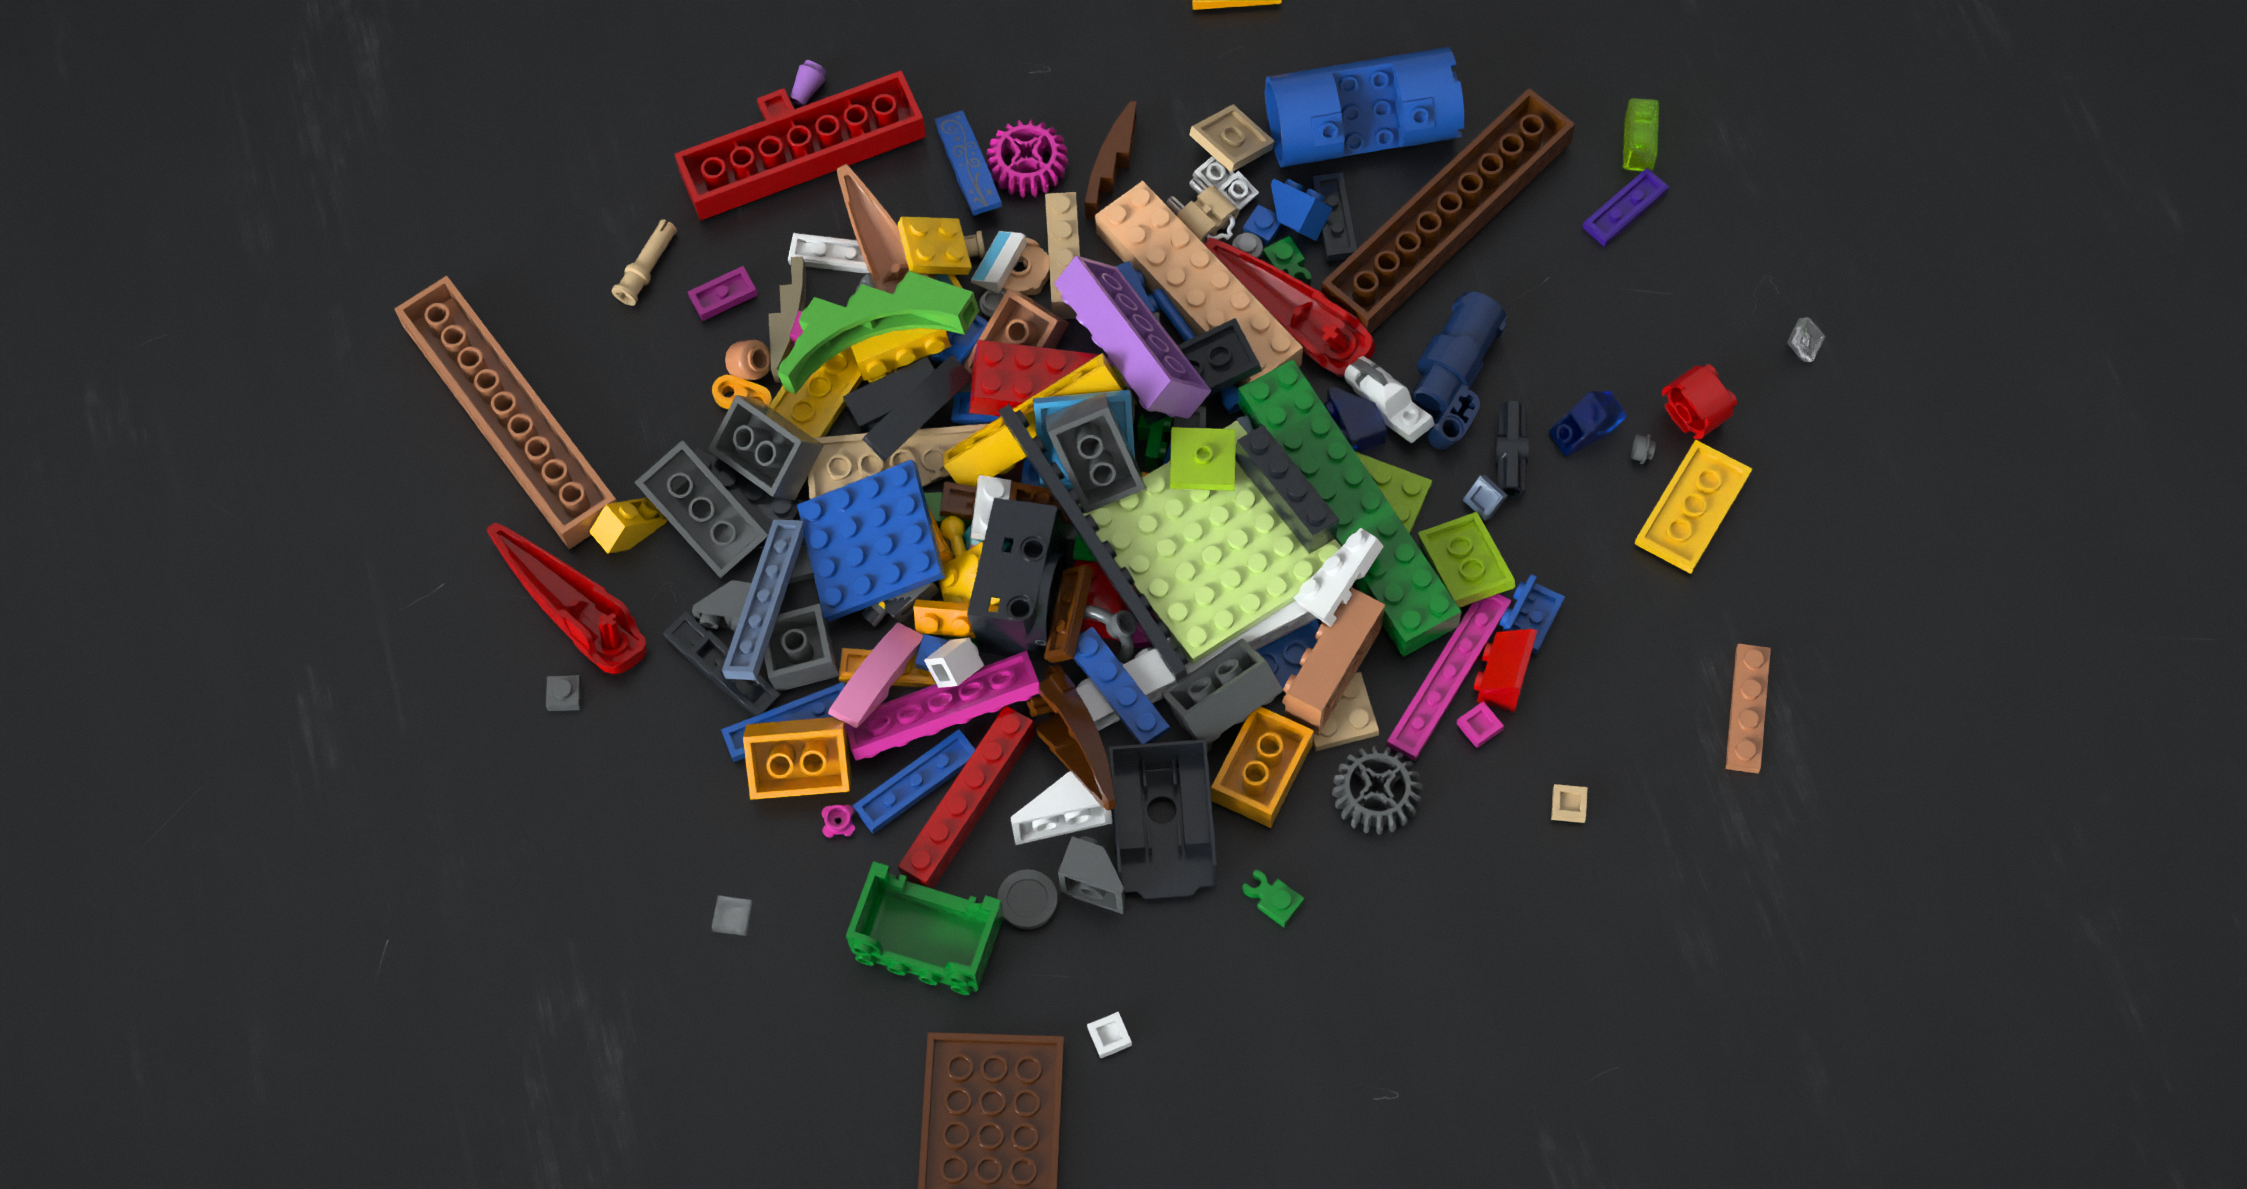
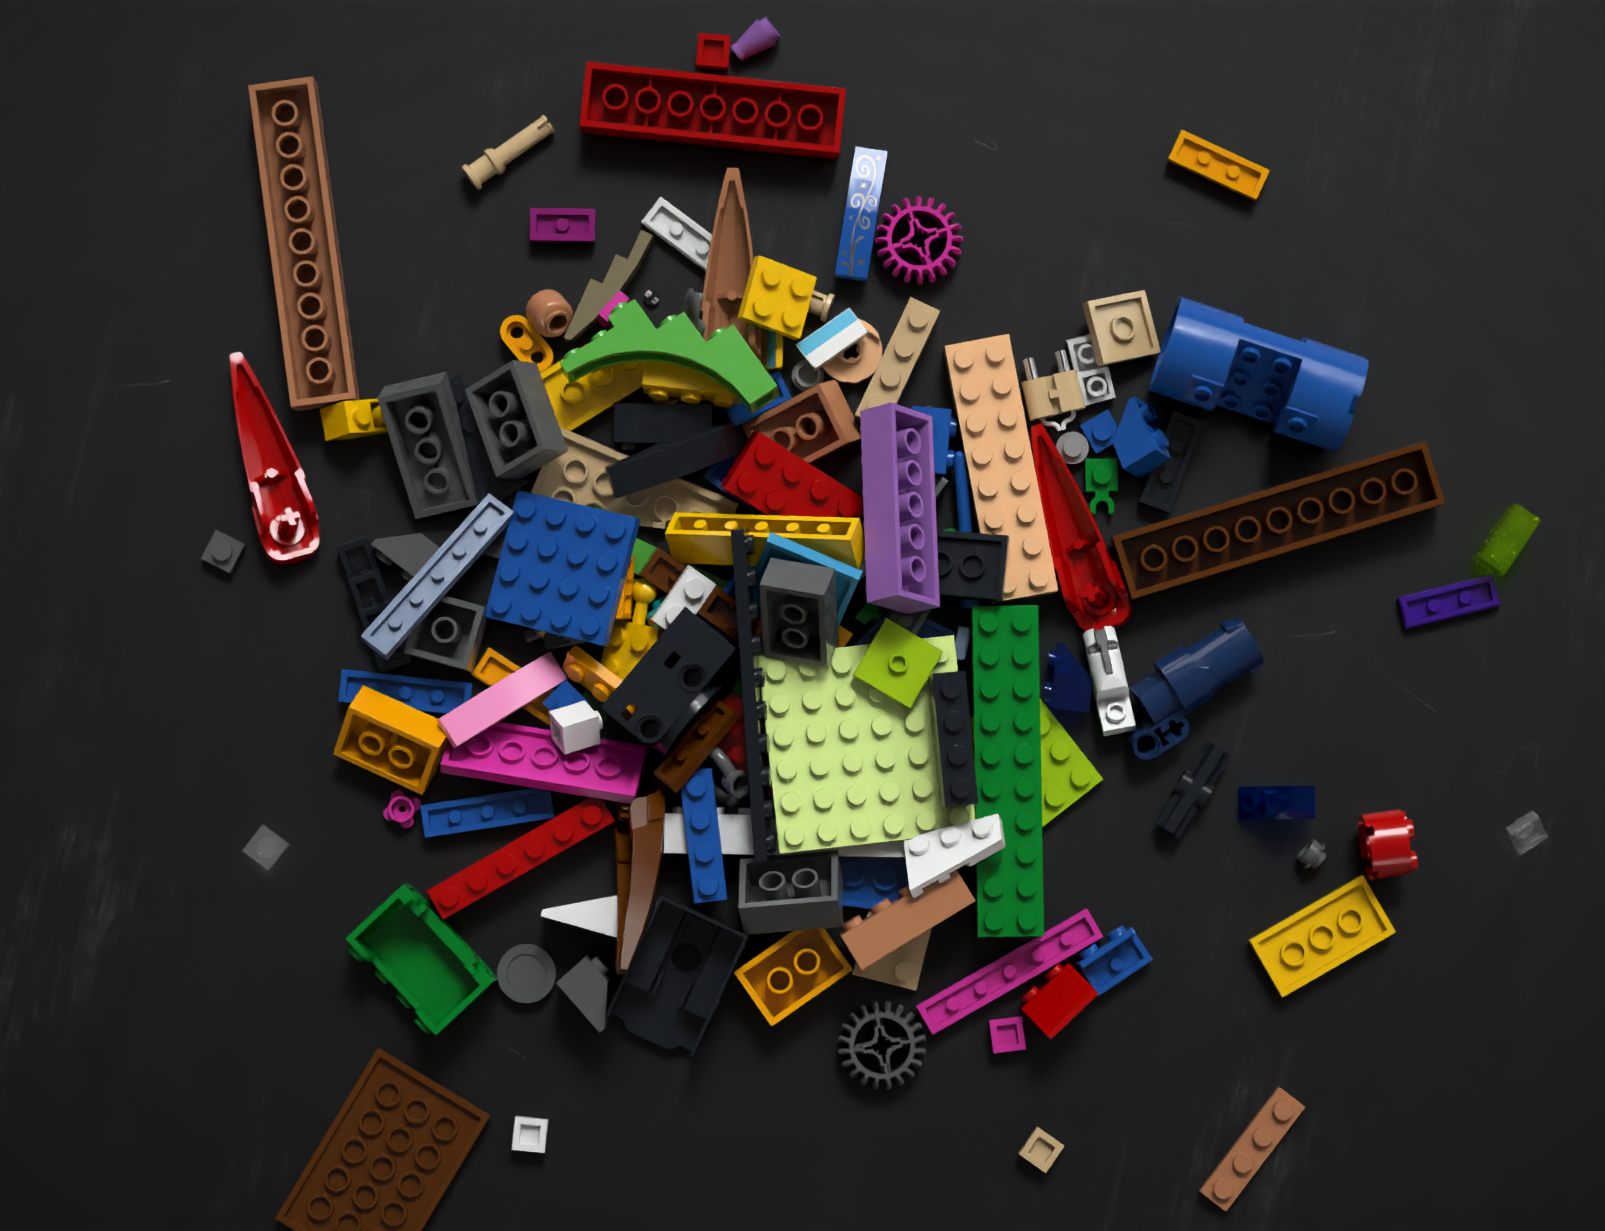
camera: 25 degrees right, 20 degrees up
(1113, 154) = (1005, 279): reddish brown slope -> none
(1276, 900) = (740, 1093): green plate -> none
(1466, 559) = (1085, 877): lime plate -> none
(1485, 497) = (1140, 823): sand blue tile -> none

